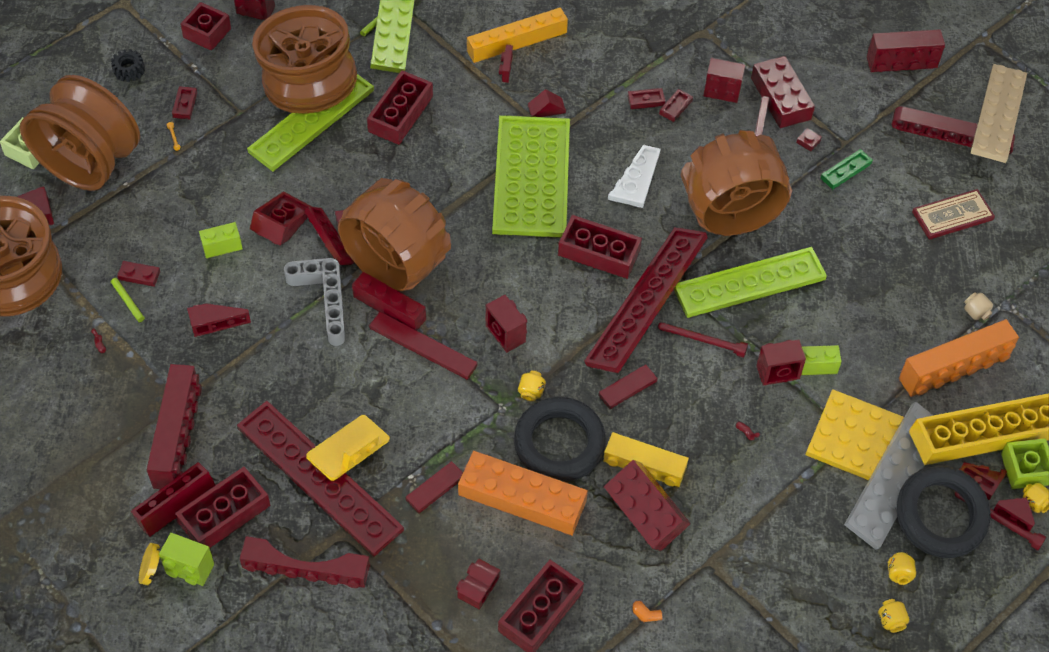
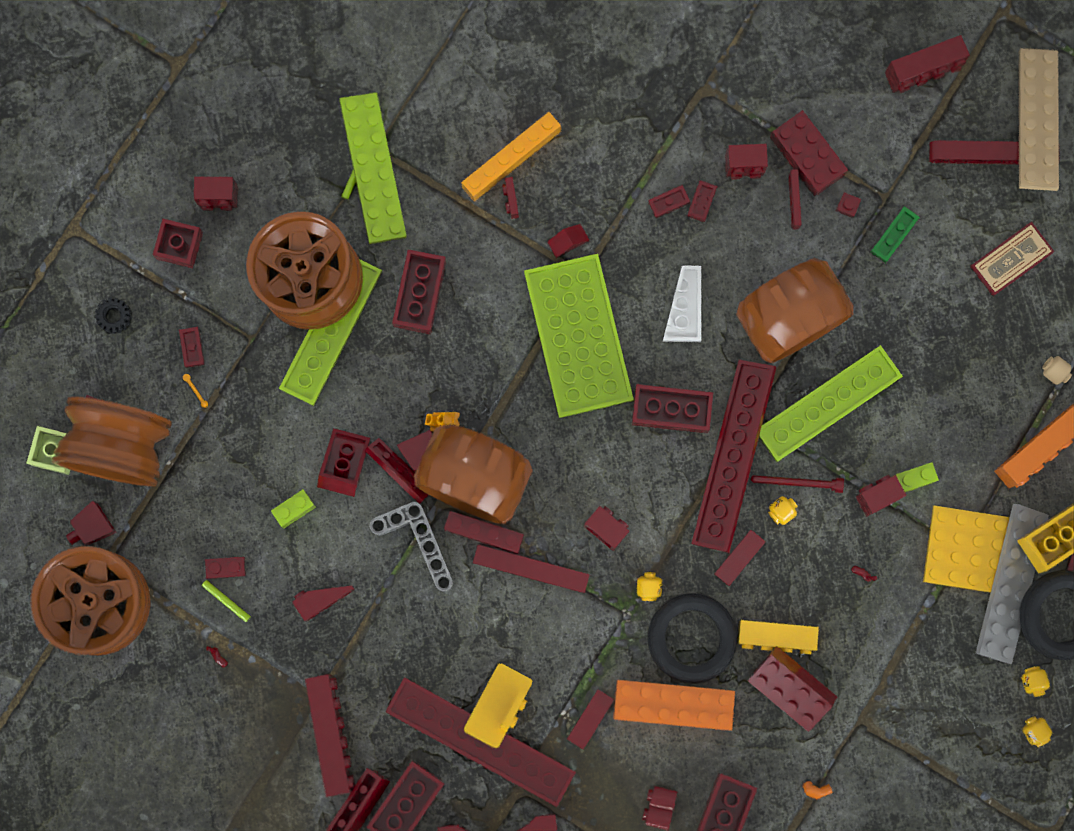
camera: 15 degrees left, 25 degrees up
(681, 355) = (783, 510): none -> yellow head

